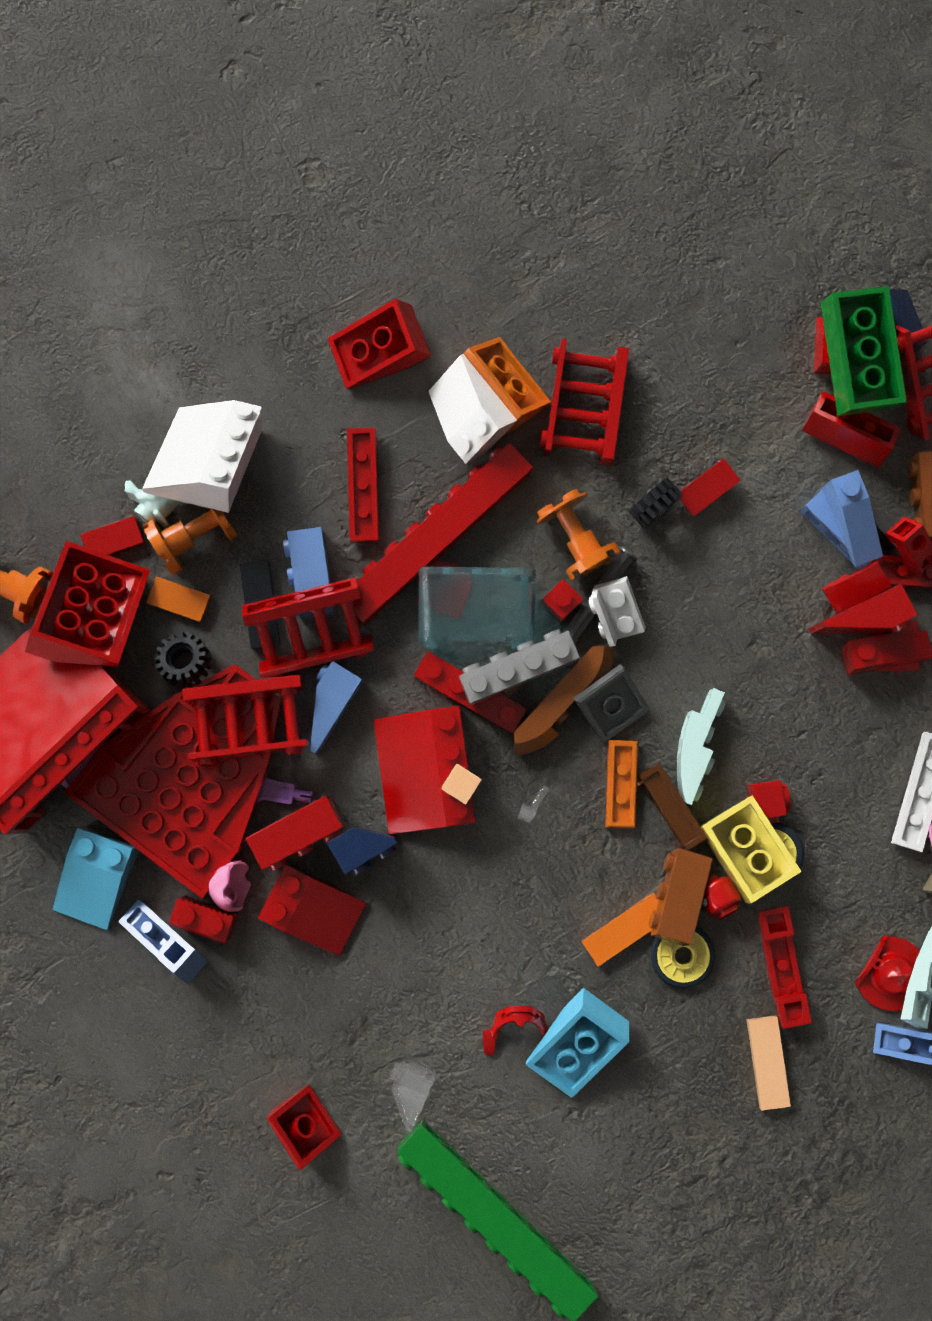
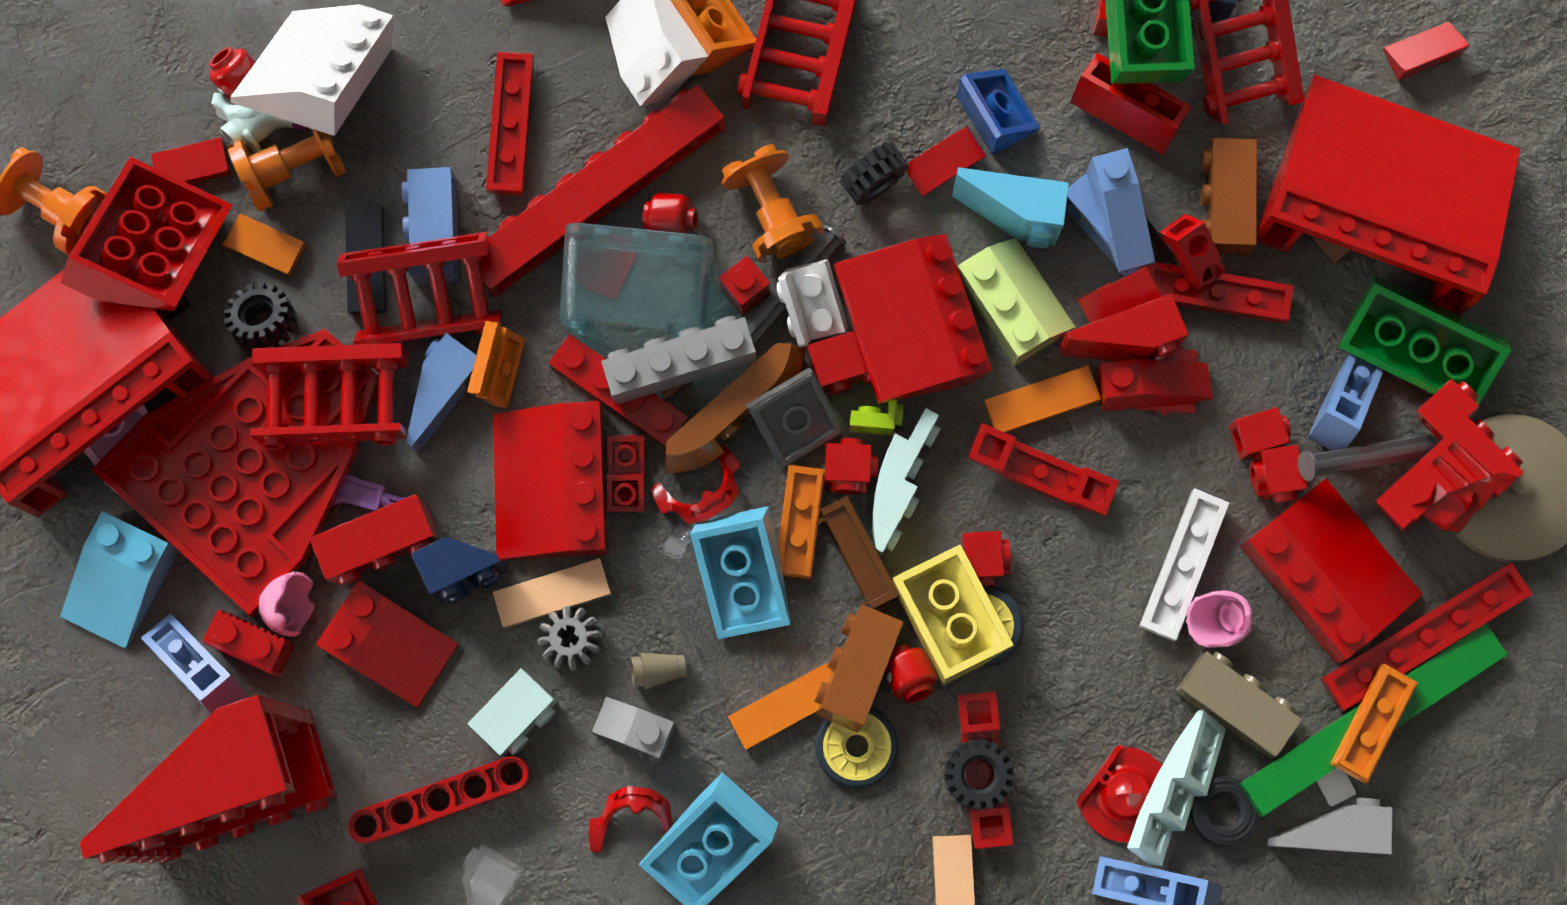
camera: 10 degrees right, 5 degrees down
(137, 462) = (229, 69): none -> red head
(210, 1044) = (231, 773): none -> red slope
(355, 1038) = (421, 800): none -> red beam
(373, 681) = (496, 365): none -> orange plate
(416, 955) = (513, 714): none -> light aqua brick
(434, 857) = (551, 593): none -> light nougat tile
(444, 896) = (558, 645): none -> light grey gear
(461, 783) = (590, 496): light nougat tile -> none
(483, 755) = (626, 473): none -> red slope
(497, 550) = (670, 214): none -> red head
(510, 958) = (634, 727): none -> light grey slope
(521, 910) = (656, 669): none -> dark tan cone
(553, 778) = (711, 502): none -> red helmet
(582, 828) = (741, 572): none -> medium azure slope
(649, 652) = (838, 363): none -> red brick
(657, 737) = (849, 466): none -> red brick
(670, 700) = (872, 421): none -> lime bracket
(697, 617) = (913, 319): none -> red slope
(744, 441) = (996, 108): none -> blue slope
(772, 520) = (1019, 205): none -> medium azure slope
(772, 594) = (1014, 300): none -> yellowish green slope
(793, 984) = (1002, 769): none -> black tyre
(800, 671) = (1042, 400): none -> orange tile
(807, 728) = (1042, 472): none -> red slope

